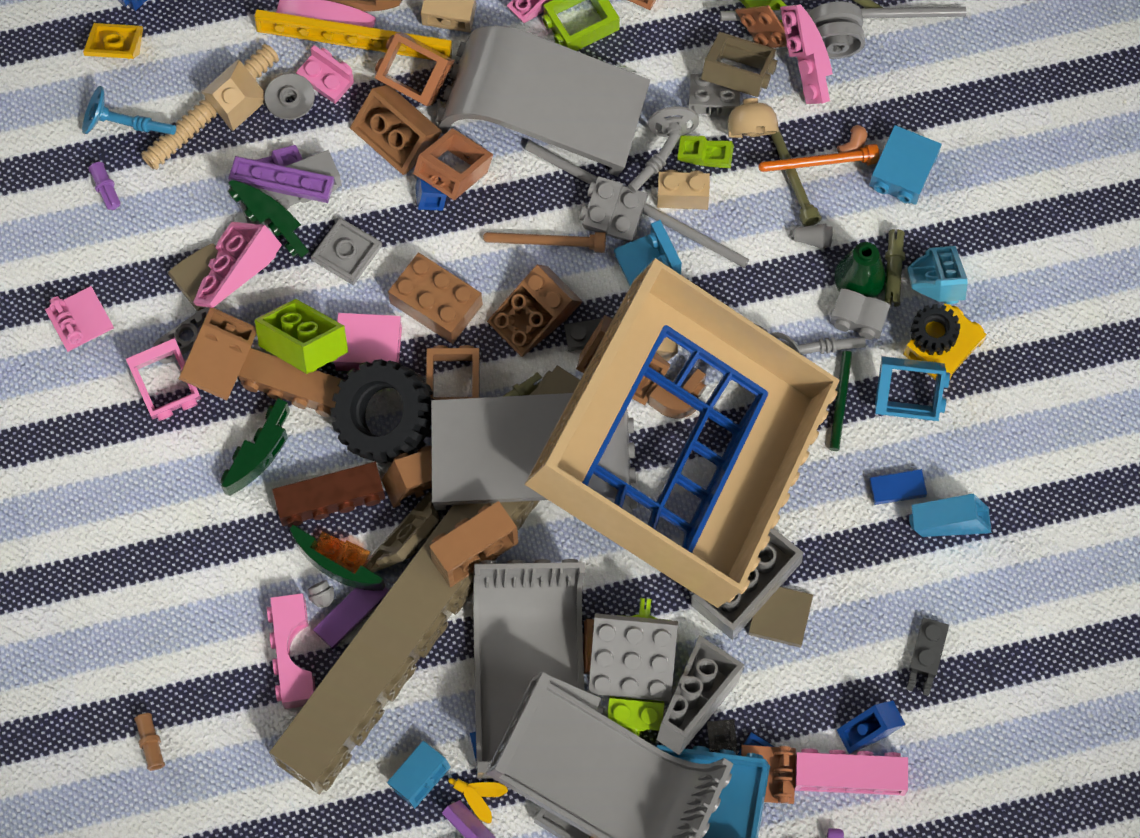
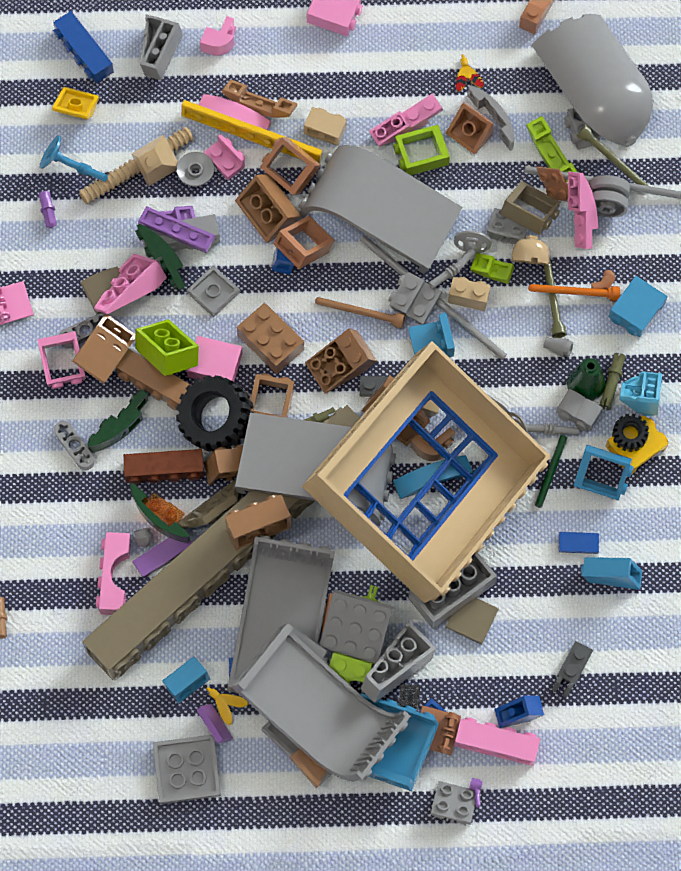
camera: 10 degrees right, 0 degrees up
(195, 472) = (77, 459): none -> light grey beam
(668, 446) = (414, 481): none -> dark azure slope

